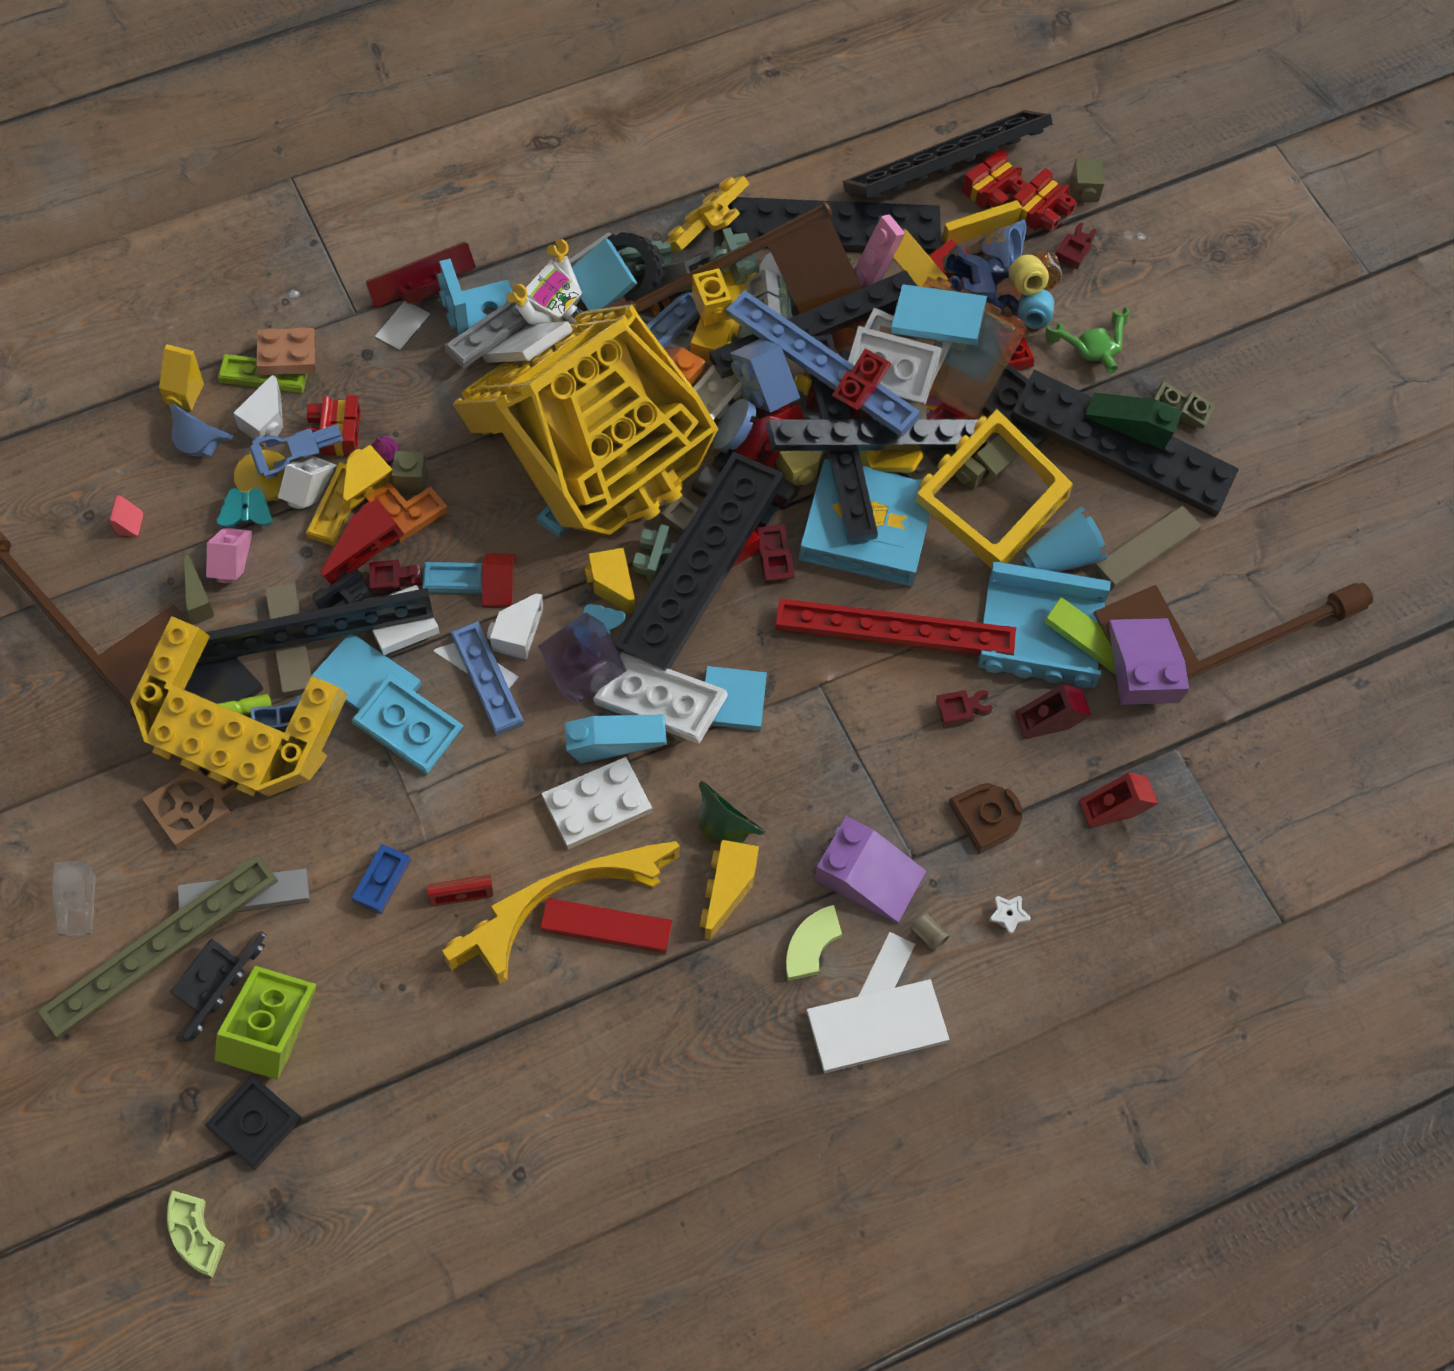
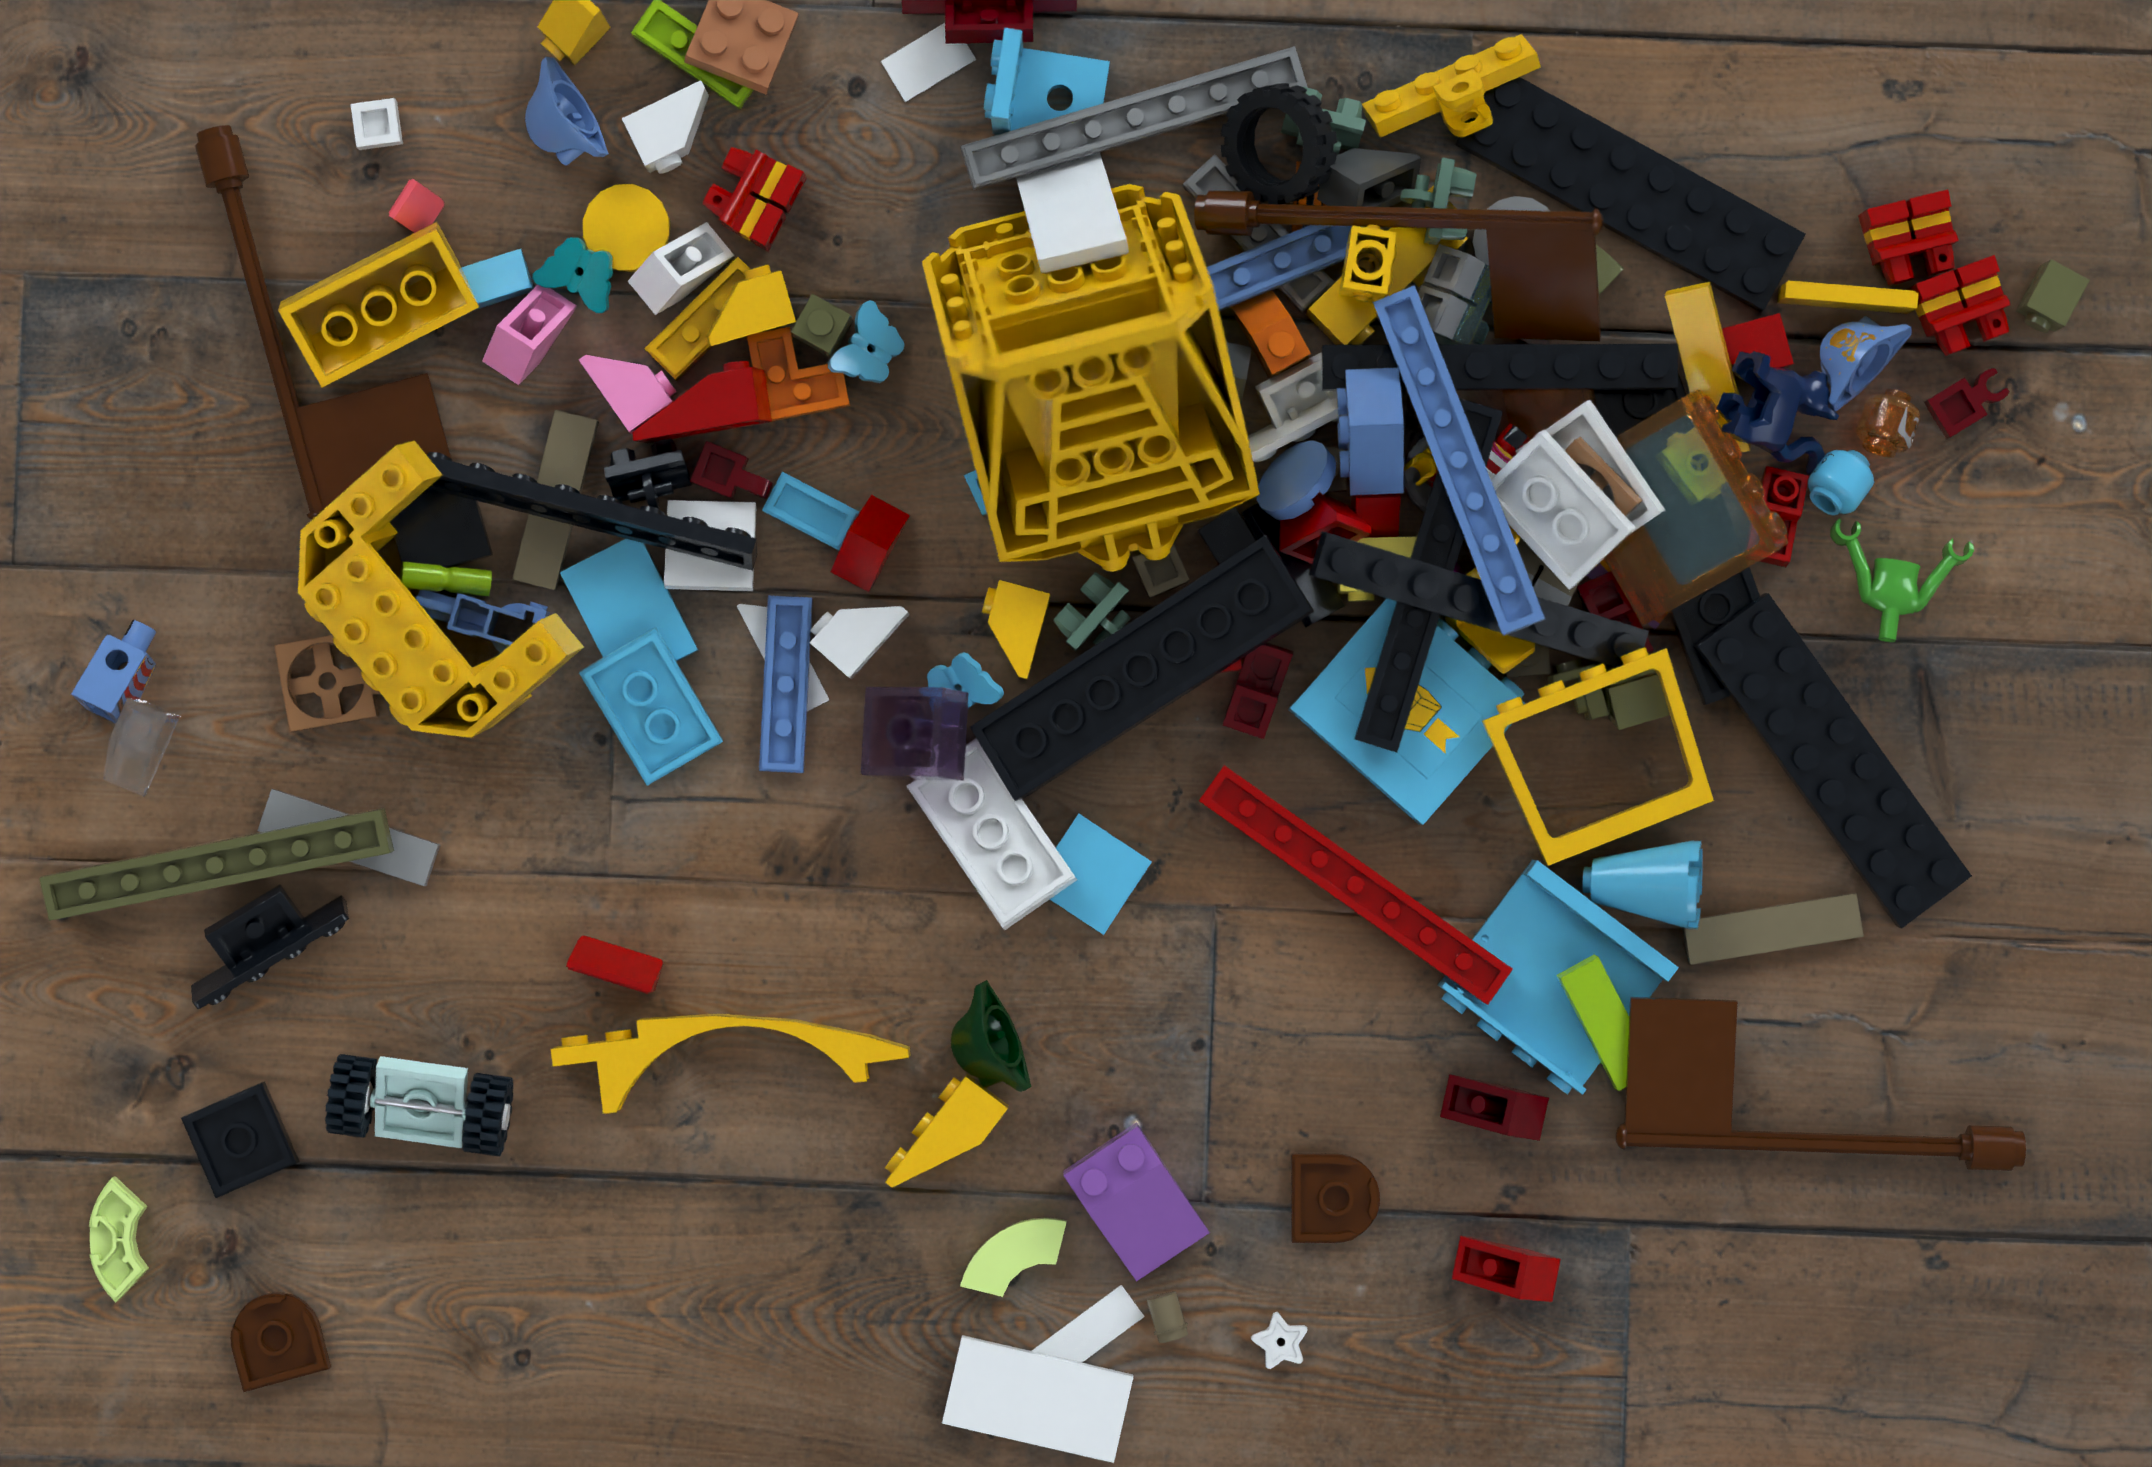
camera: 30 degrees right, 25 degrees up
(36, 858) = (103, 686): none -> medium blue torso
(81, 484) = (376, 124): none -> white plate
(124, 571) = (378, 304): none -> yellow slope
(188, 542) = (499, 278): none -> medium azure slope
(196, 598) = (460, 378): olive slope -> none
(264, 1022) = (304, 1023): lime slope -> none
(301, 445) = (690, 222): medium blue piece -> none
(303, 555) = (630, 389): none -> bright pink slope
(340, 1246) = (277, 1341): none -> reddish brown tile
(368, 1029) = (419, 1103): none -> plate
(381, 879) = (523, 905): blue plate -> none
(385, 448) = (807, 266): magenta plate -> none
(443, 472) = (871, 331): none -> medium azure animal
(551, 293) = (1148, 137): torso -> none
(596, 803) = (842, 932): white plate -> none
(603, 276) = (1233, 143): medium azure tile -> none
(606, 925) = (773, 1104): red tile -> none
(613, 736) = (903, 864): medium azure slope -> none
(862, 380) = (1491, 528): red slope -> none
(879, 251) = (1649, 299): bright pink plate -> none
(939, 314) = (1663, 470): medium azure tile -> none
(943, 155) = (1866, 154): black plate -> none
(958, 709) = (1374, 1036): dark red plate -> none
(1028, 275) = (1850, 439): light yellow head -> none
(1136, 417) = (1859, 744): dark green slope -> none
(1147, 662) = (1656, 1105): medium lavender slope -> none
(1195, 407) = (1957, 736): olive slope -> none

